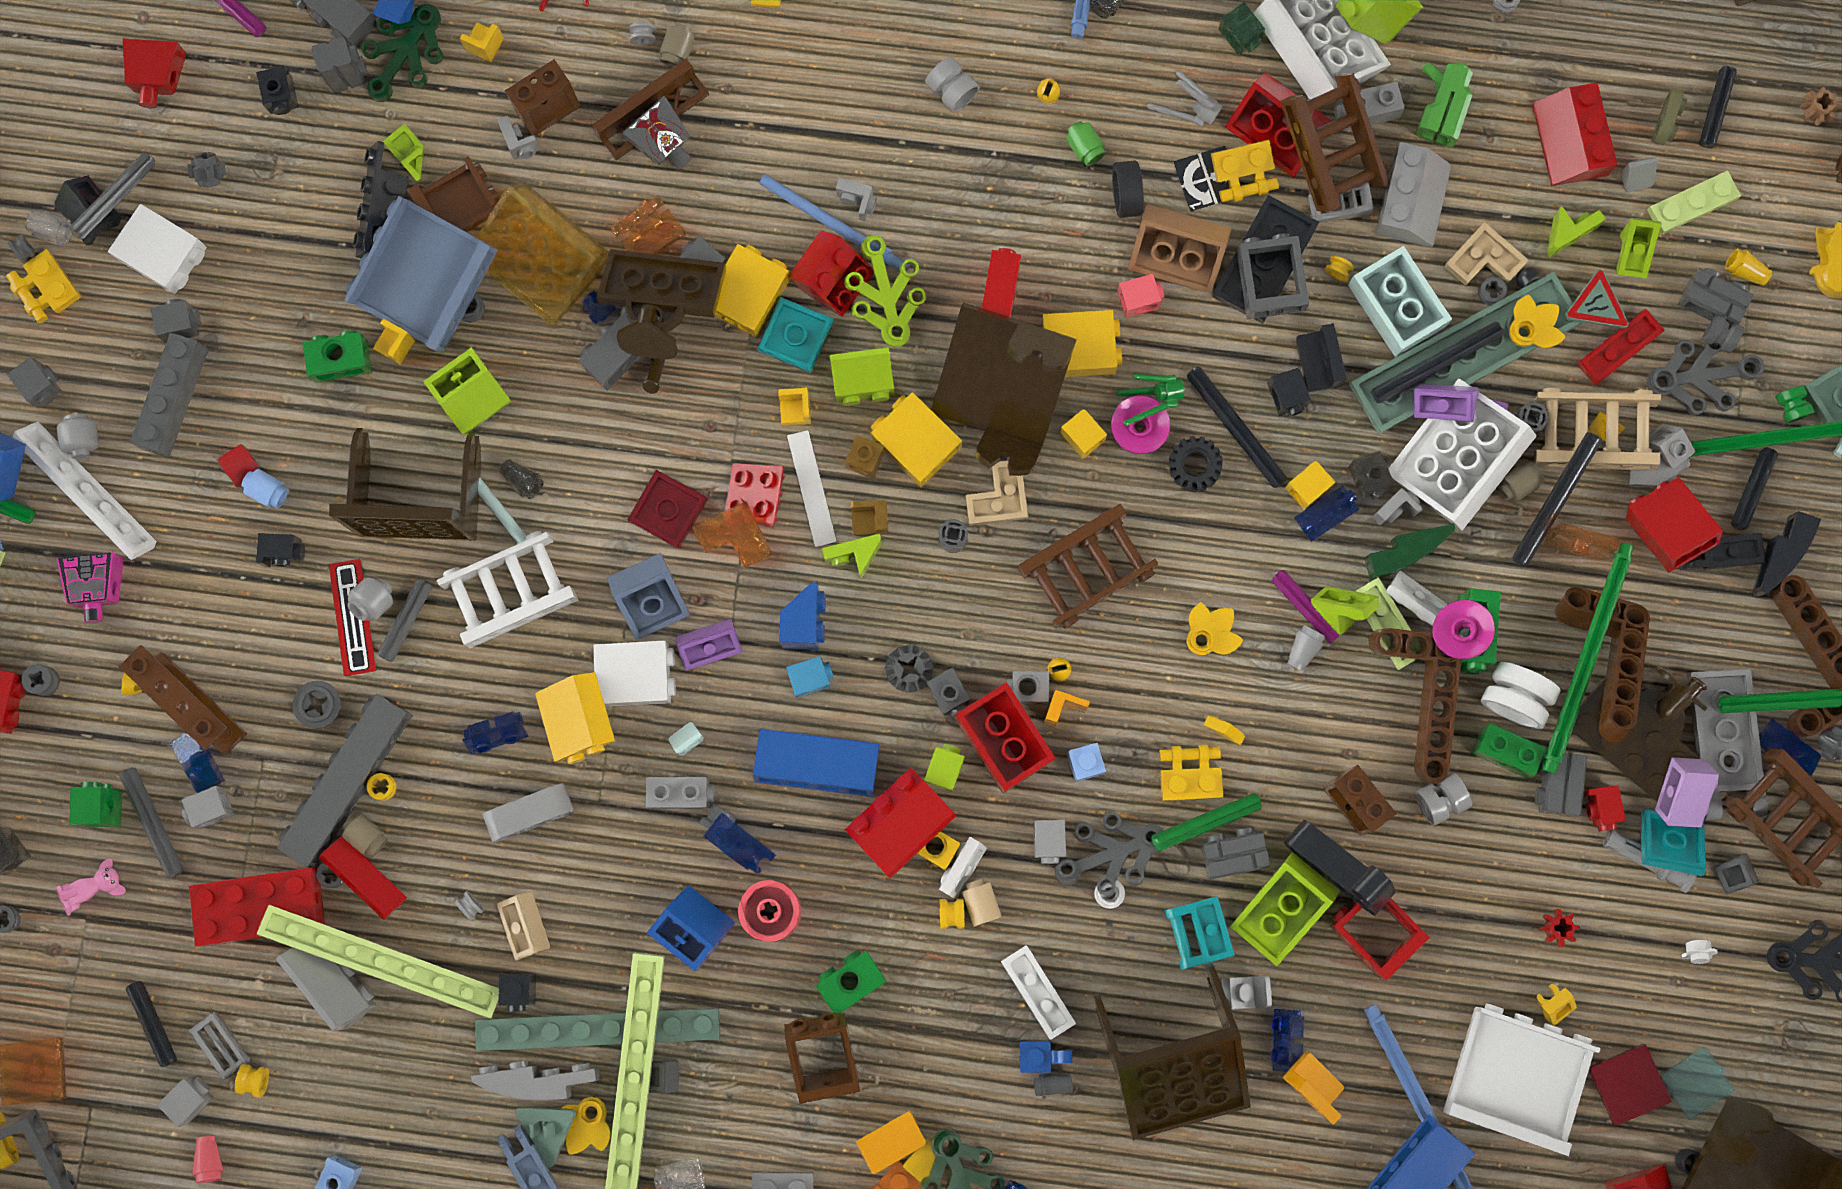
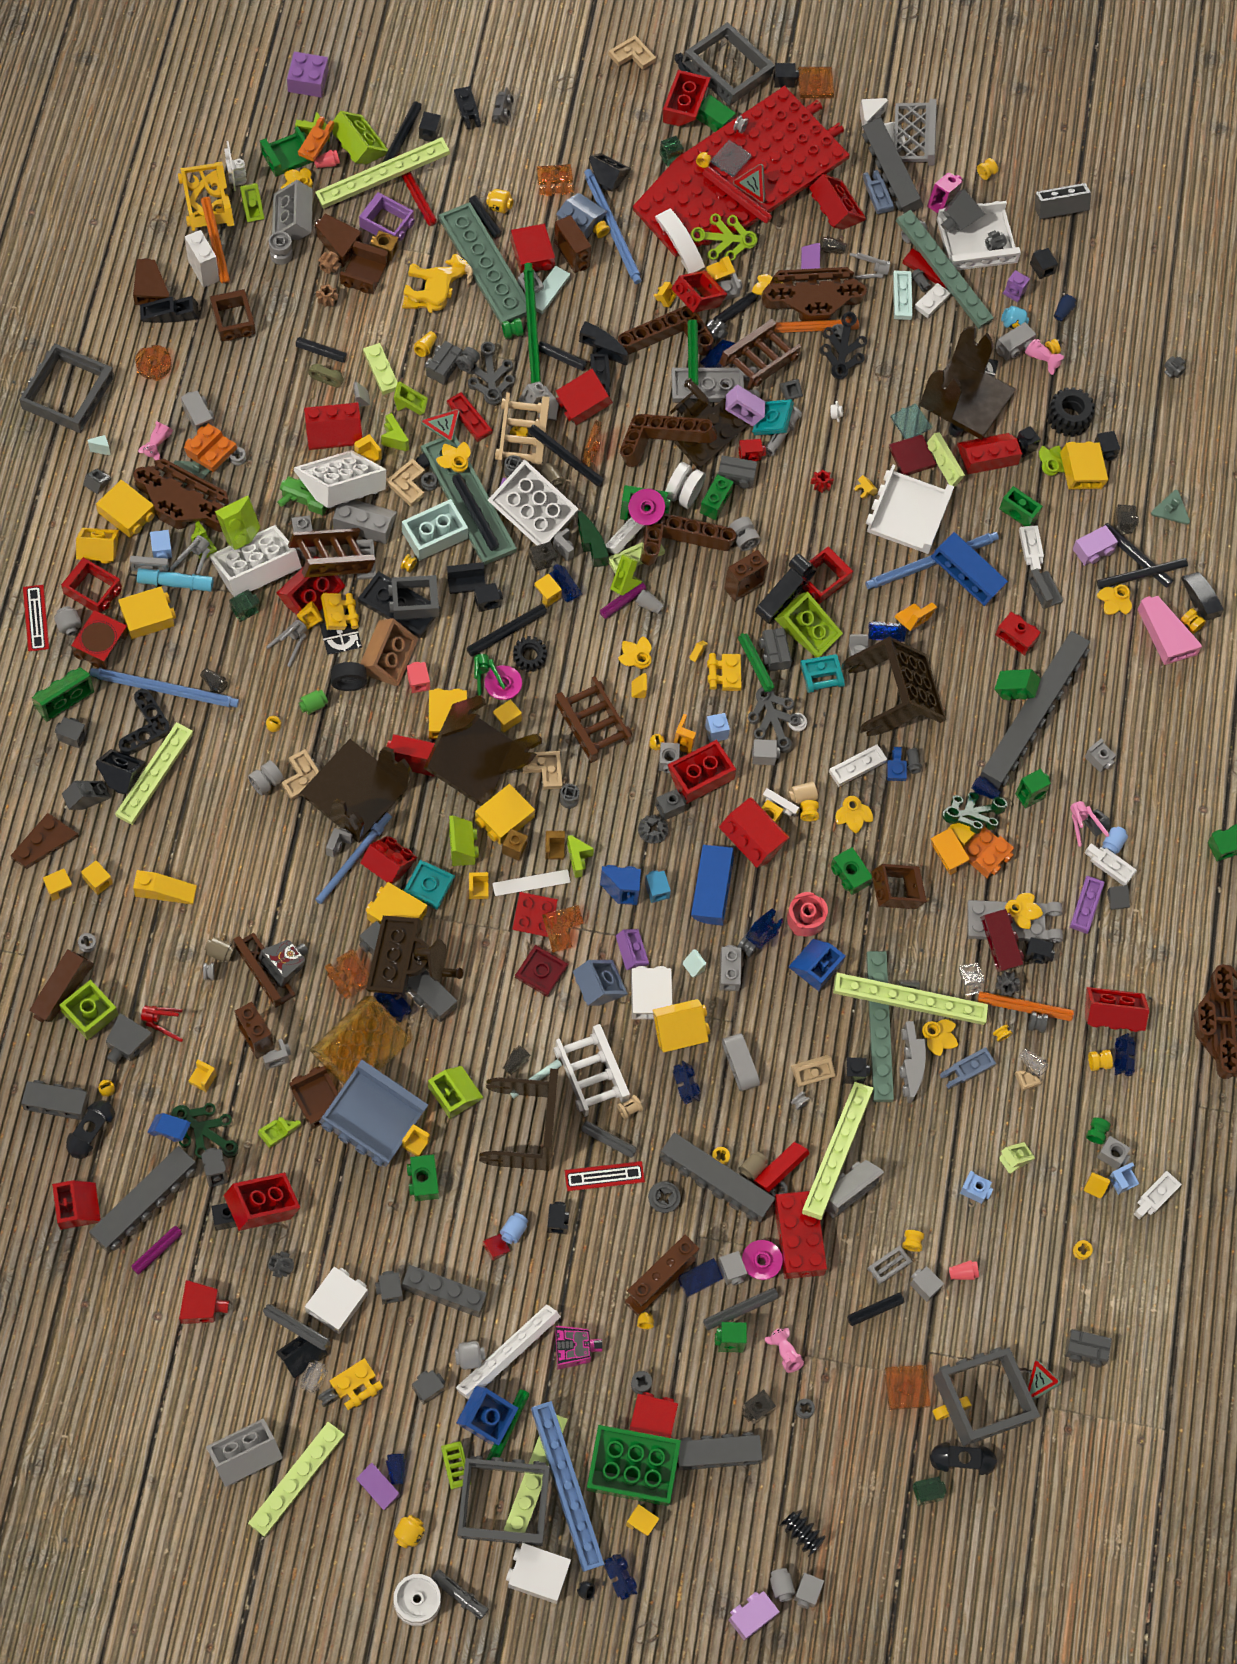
camera: 100 degrees left, 15 degrees down
(206, 847) = (762, 1250): none -> dark pink dish
(285, 130) = (261, 1201): none -> red brick
(370, 599) = (594, 1158): light grey head -> none
(379, 192) = (314, 1149): black bracket -> none
(444, 642) = (629, 1107): none -> tan bush
(547, 1129) = (941, 1057): sand green piece -> none
(886, 295) = (406, 825): lime plant -> none
(938, 213) = (357, 788): none -> dark brown piece
(945, 767) = (717, 808): lime brick -> none
(948, 986) = (853, 816): none -> yellow plate
(962, 145) = (305, 770): none -> tan plate
(1152, 638) = (639, 686): none -> yellow slope
(1234, 127) = (310, 615): none -> yellow slope
(1445, 402) = (502, 508): medium lavender slope -> none
(1475, 149) = (342, 478): none -> white slope
(1536, 191) = (368, 448): none -> yellow panel
(1588, 658) = (665, 446): green piece -> none
(1624, 1141) = (945, 459): none -> yellowish green plate

